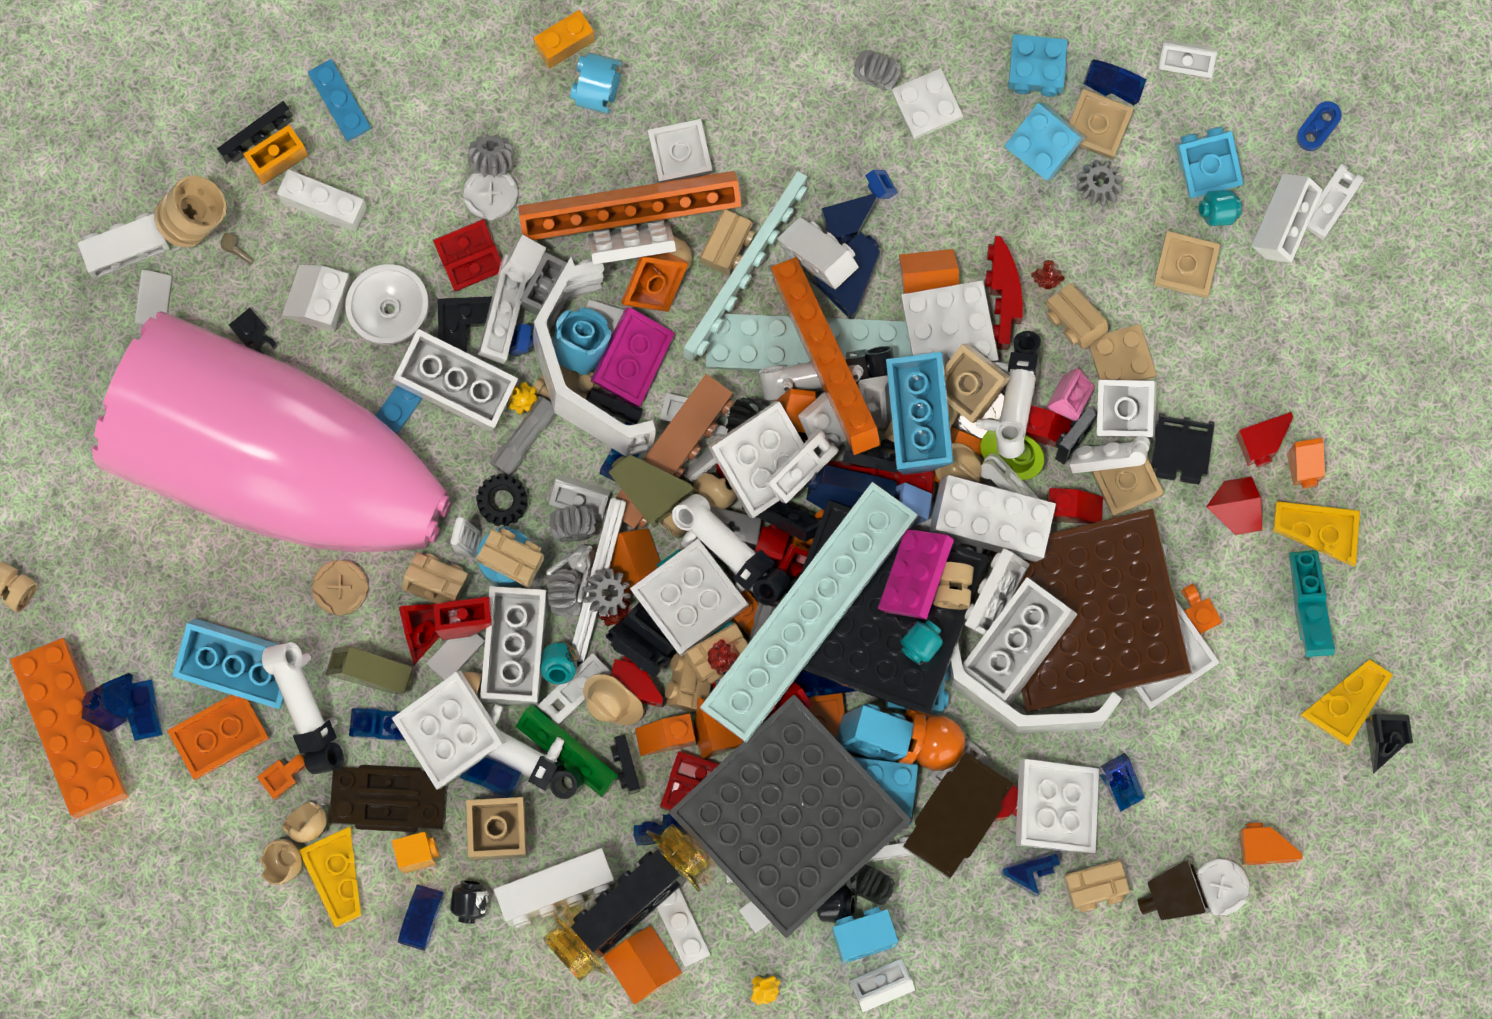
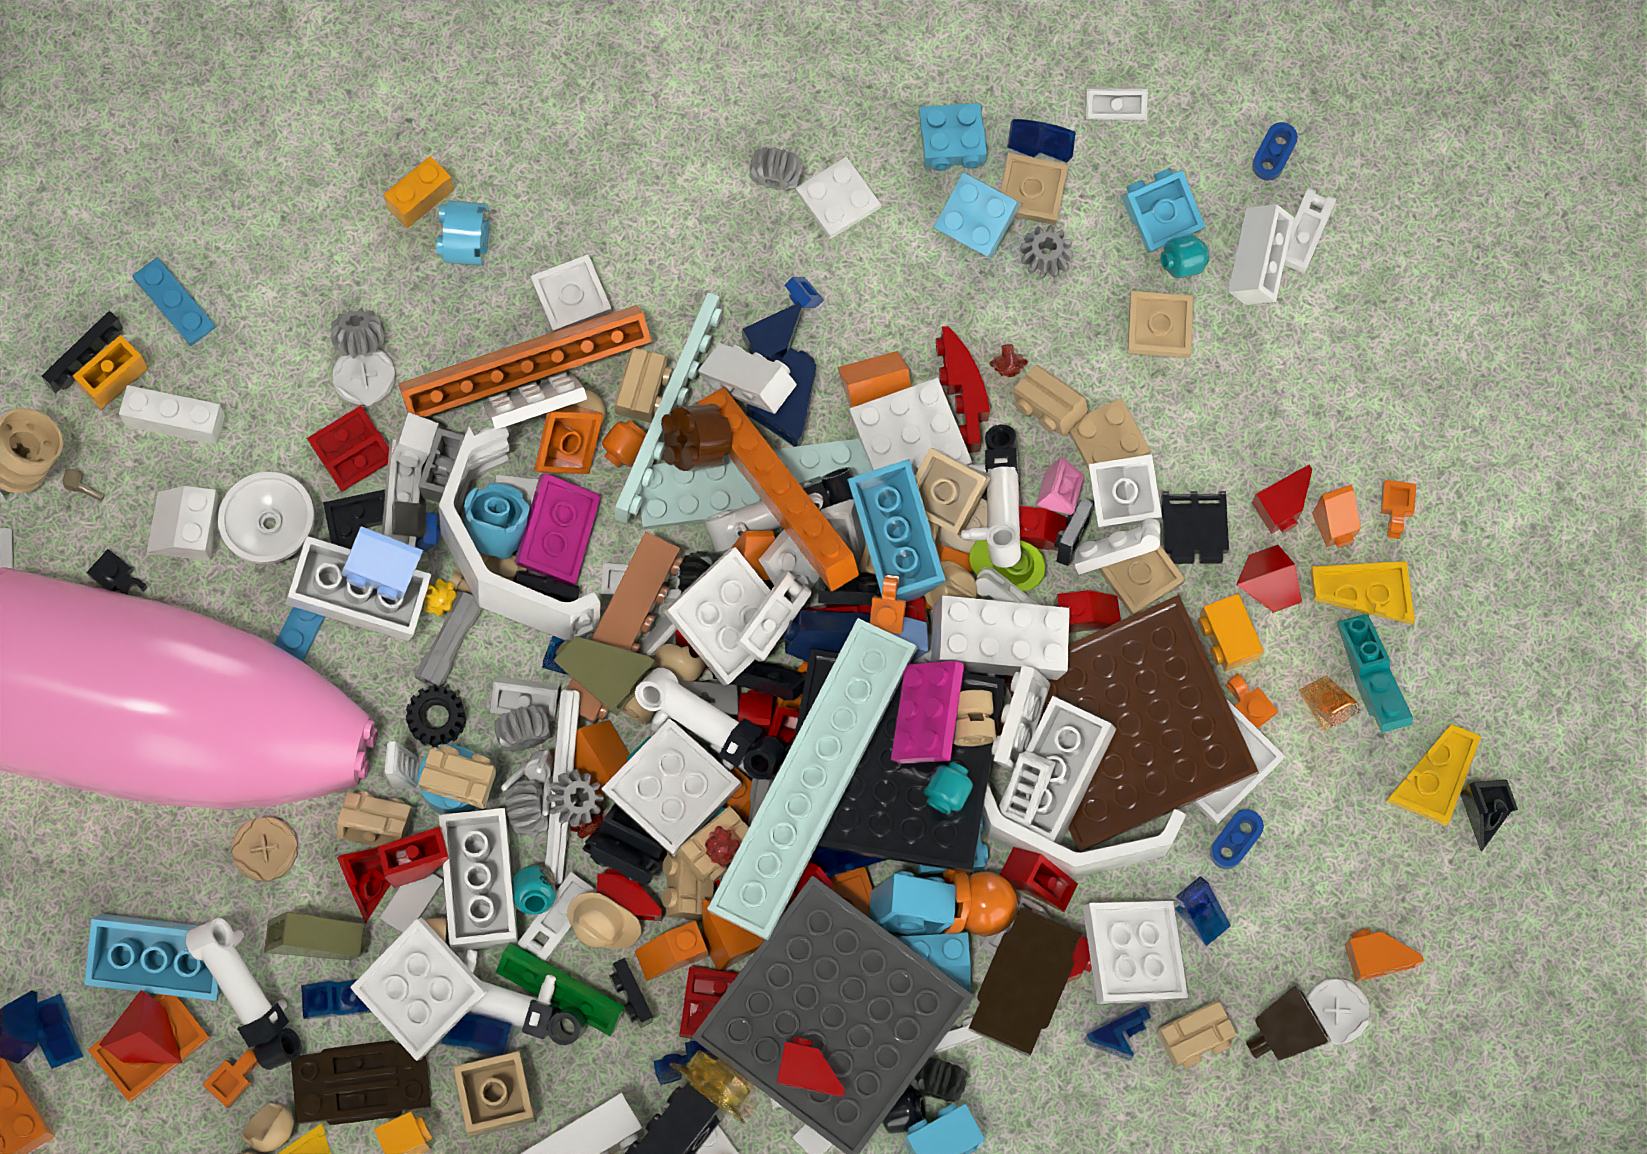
camera: 15 degrees left, 5 degrees down
(214, 726) = (143, 1034): none -> red slope
(476, 364) = (381, 563): none -> light blue slope
(507, 327) = (409, 519): none -> clear smoke tile
(702, 291) = (623, 443): none -> orange head
(759, 856) = (807, 1069): none -> red slope
(764, 298) = (696, 437): none -> reddish brown brick
(899, 480) = (888, 611): none -> orange plate
(988, 729) = (1039, 878): none -> red slope
(1004, 646) = (1020, 771): none -> white slope
(1164, 726) = (1236, 840): none -> blue plate
(1193, 546) = (1230, 633): none -> light orange brick
(1267, 622) = (1329, 702): none -> clear orange slope
(1363, 457) = (1397, 501): none -> orange plate

